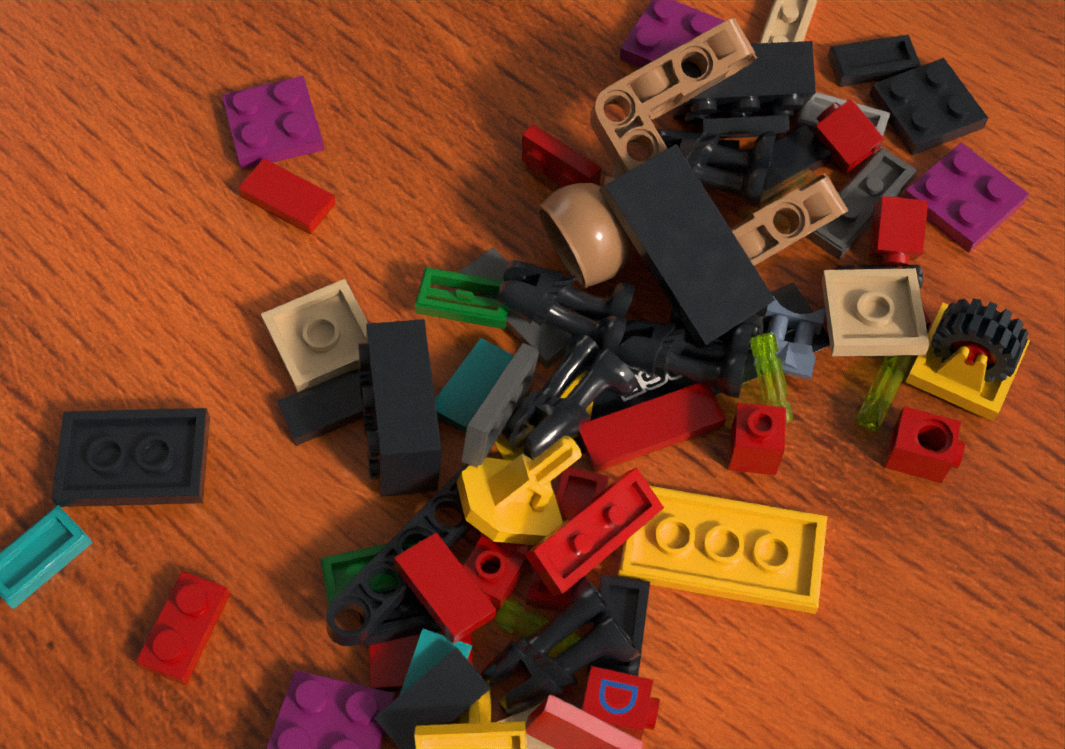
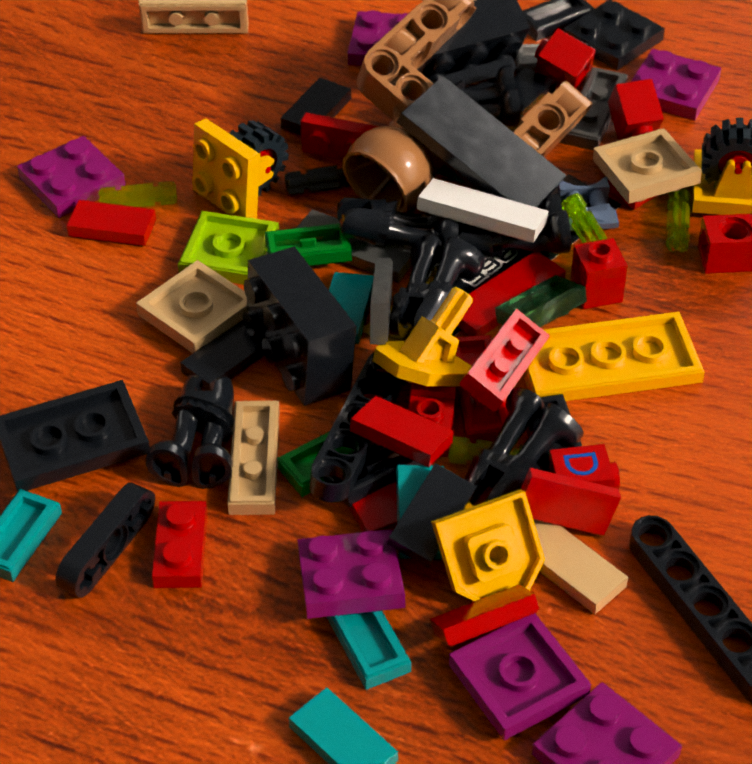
camera: 20 degrees left, 15 degrees down
(109, 600) = (105, 540): none -> black beam
(259, 471) = (211, 416): none -> black piece
(300, 545) = (254, 458): none -> tan tile
(327, 169) = (140, 194): none -> clear neon green axle
(388, 265) = (226, 244): none -> lime tile
(434, 172) = (236, 165): none -> yellow plate
(513, 206) = (315, 180): none -> black axle
(559, 107) = (321, 98): none -> black tile
(656, 325) = (482, 210): none -> white tile
(679, 456) = (544, 301): none -> clear green plate

